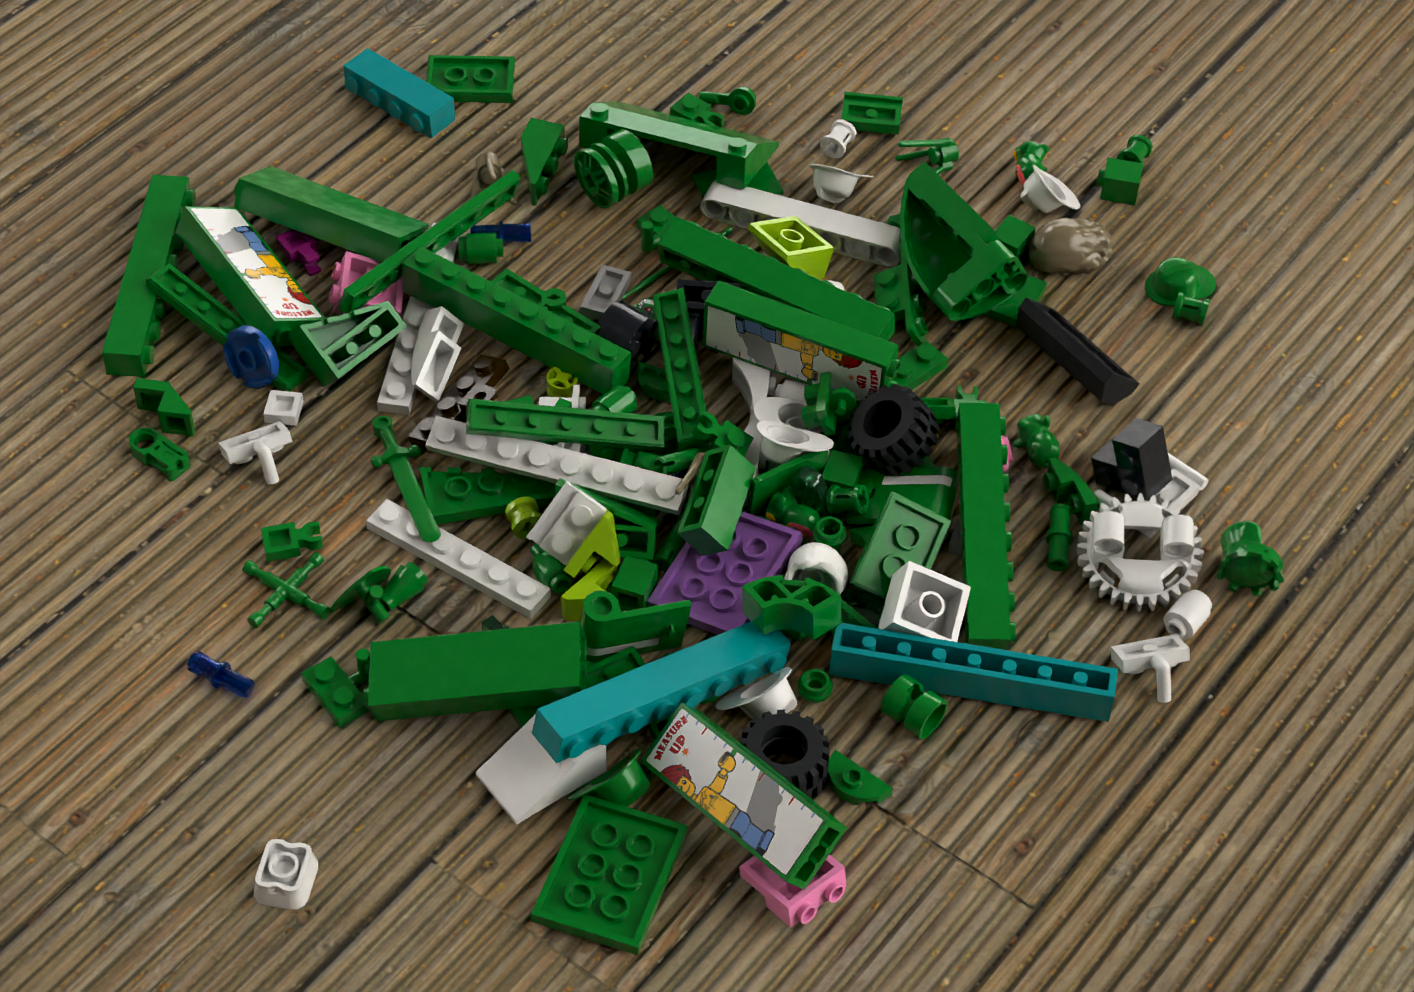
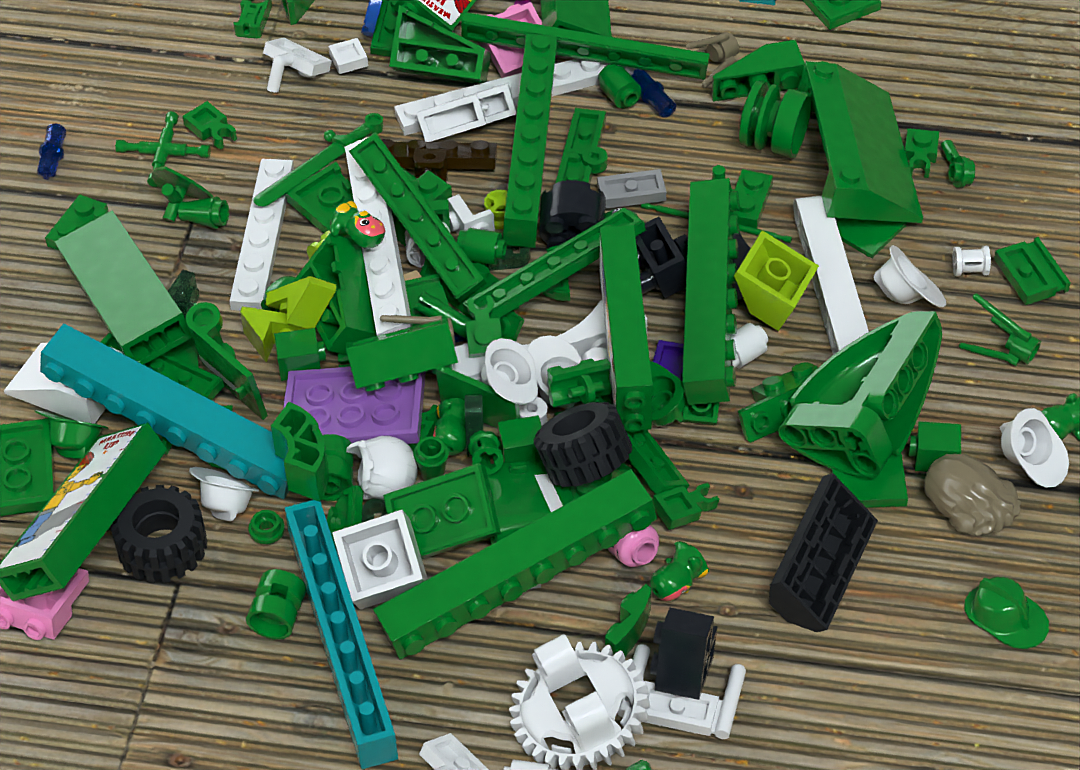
camera: 65 degrees right, 0 degrees up
(561, 461) = (359, 225): none -> green animal
(566, 523) = (311, 259): white plate -> none
(854, 782) = (175, 599): green plate -> none
(920, 365) = (712, 444): green plate -> none
(1059, 537) = (583, 632): green pin -> none
(1190, 309) = (965, 632): green bush -> none

